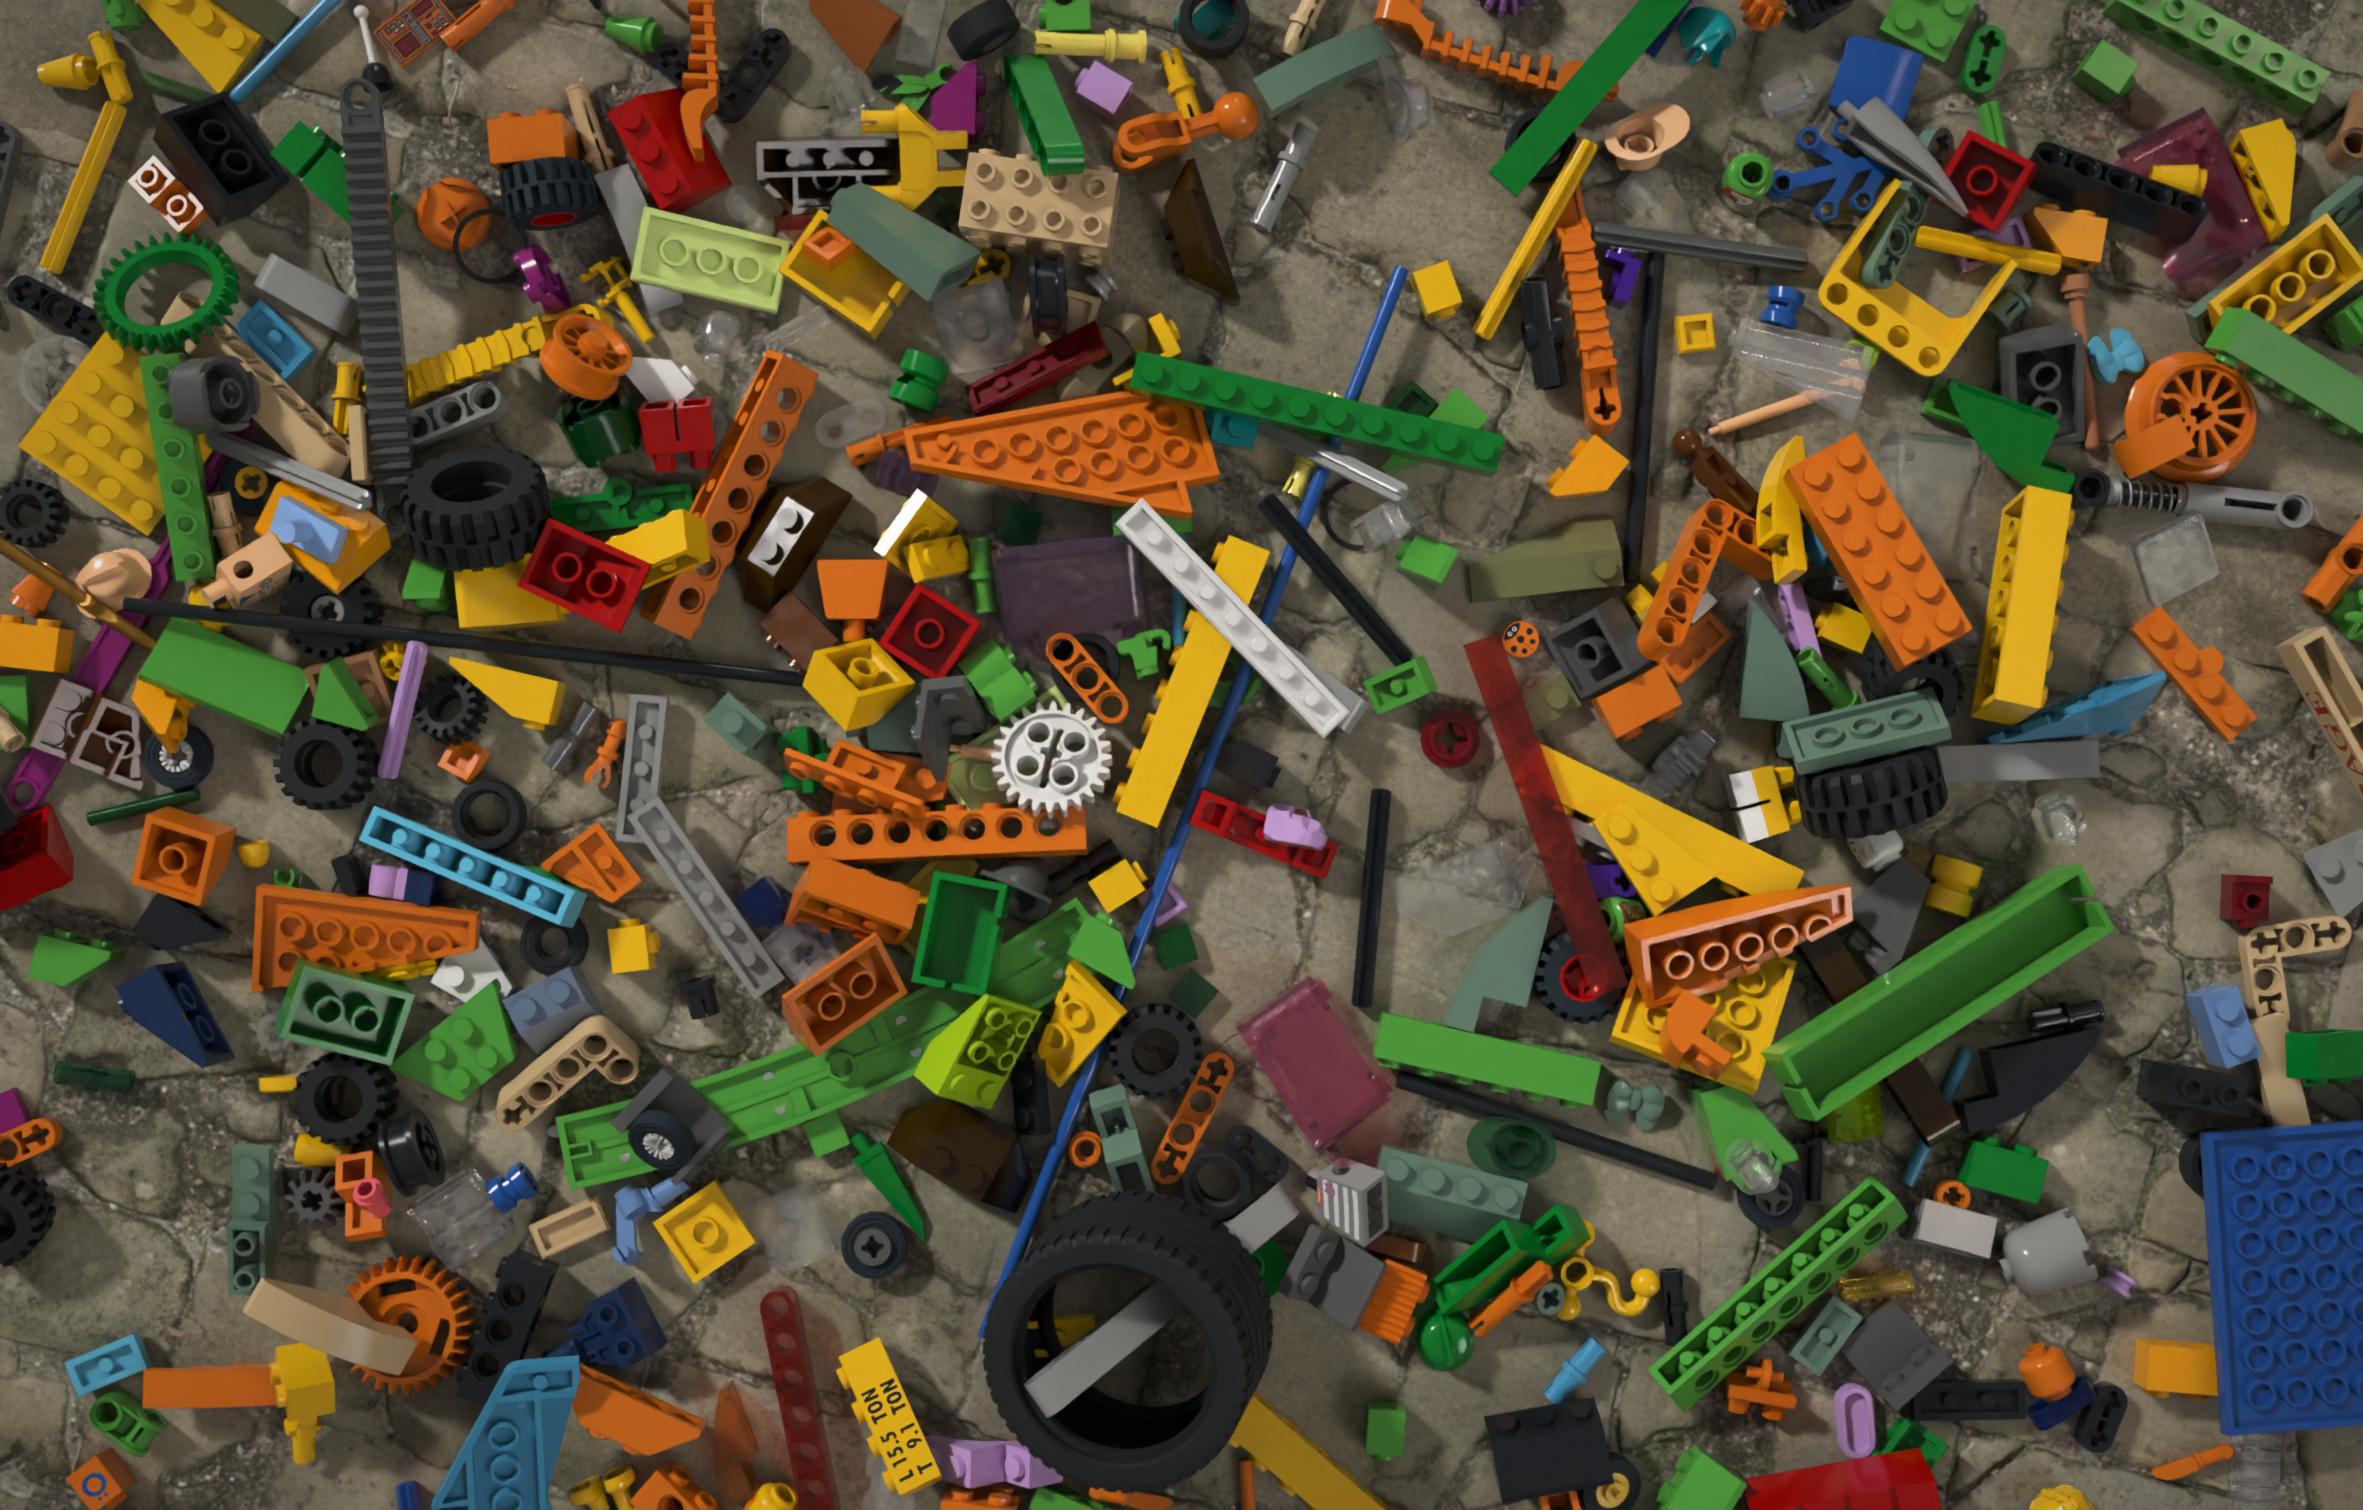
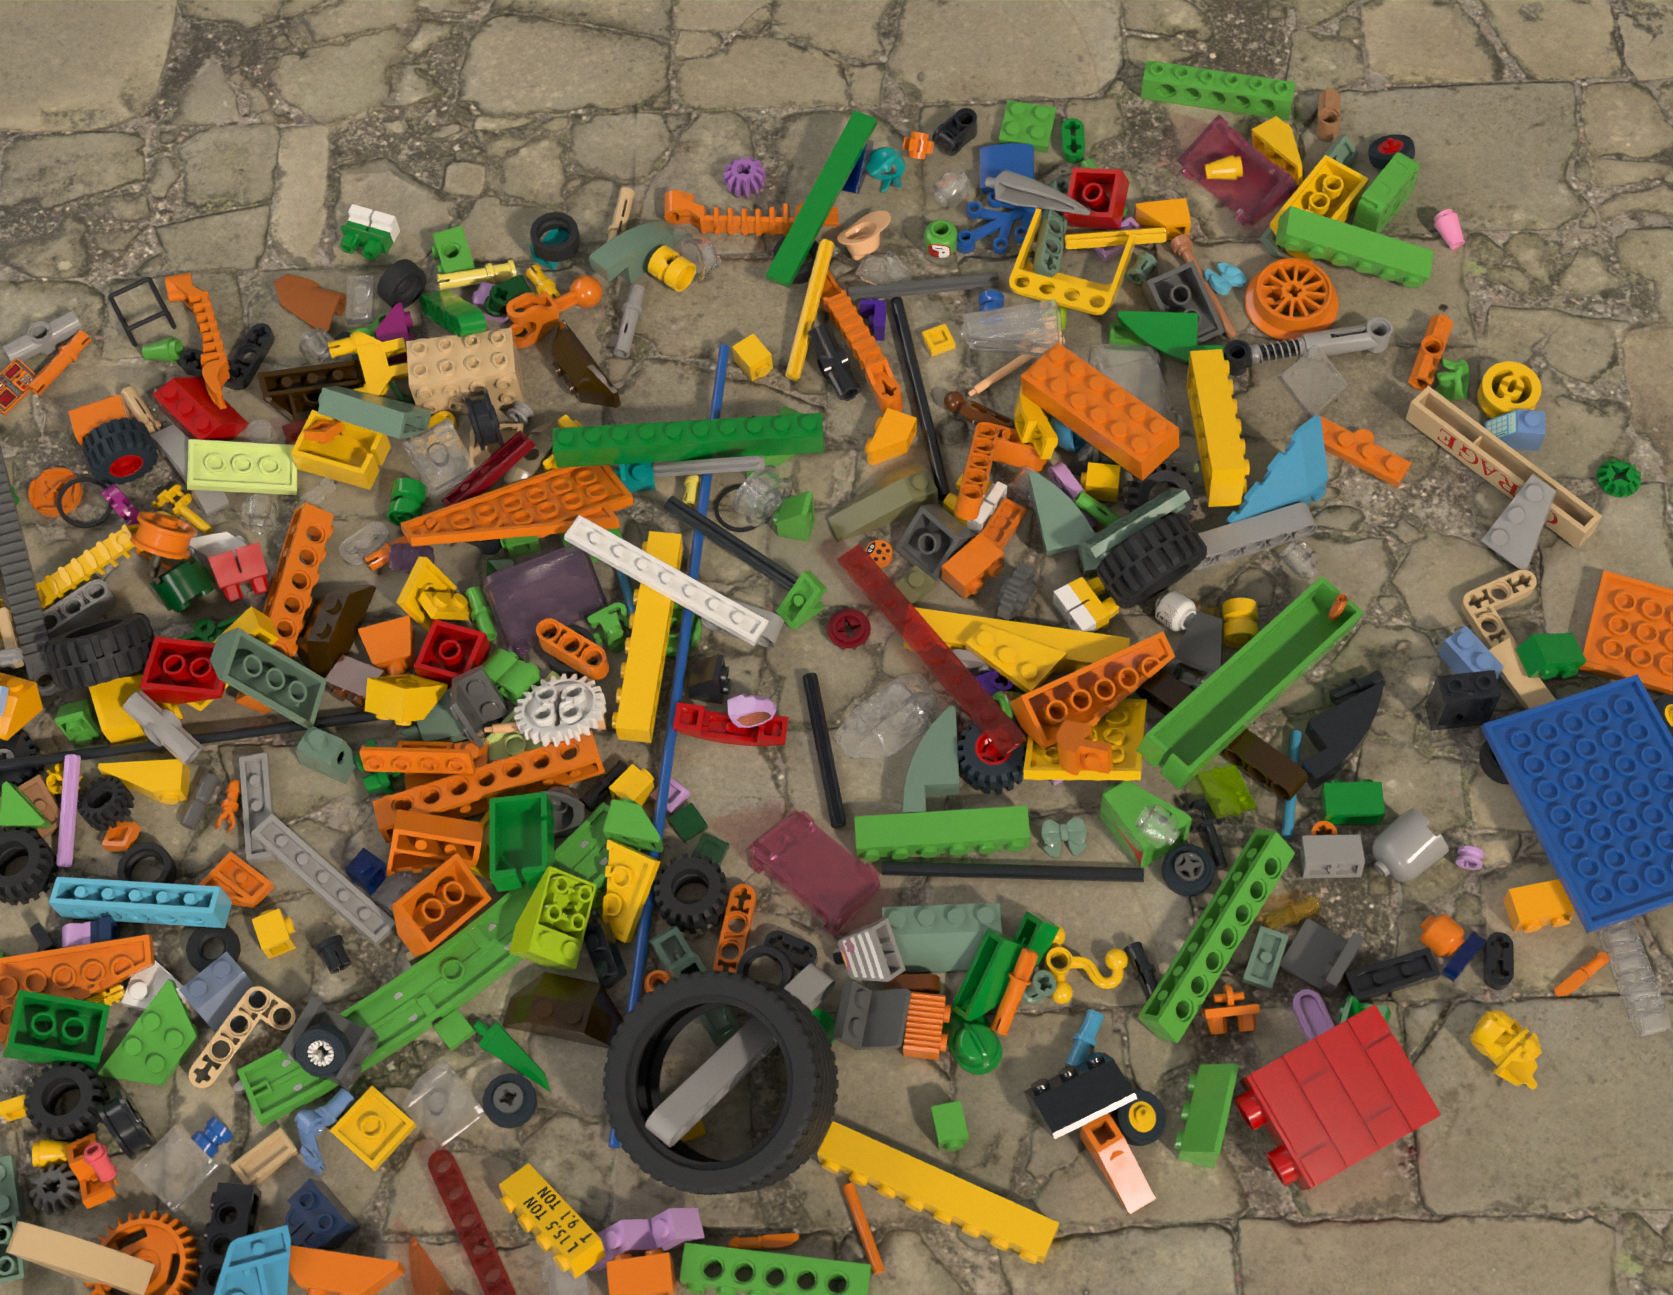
camera: 15 degrees left, 25 degrees down
(538, 640) = (162, 727): none -> light grey piece
(682, 624) = (268, 676): none -> sand green slope
(1128, 102) = (502, 293): none -> dark green piece
(1372, 122) = (671, 268): none -> yellow wheel
(1511, 1147) = (981, 884): clear green piece -> none
(2084, 911) = (1338, 607): none -> orange piece
(2105, 72) = (1154, 124): bright green brick -> none
(2116, 193) = (1192, 184): black beam -> none
(2152, 447) = (1266, 314): orange brick -> none
(2233, 899) = (1443, 572): dark red brick -> none

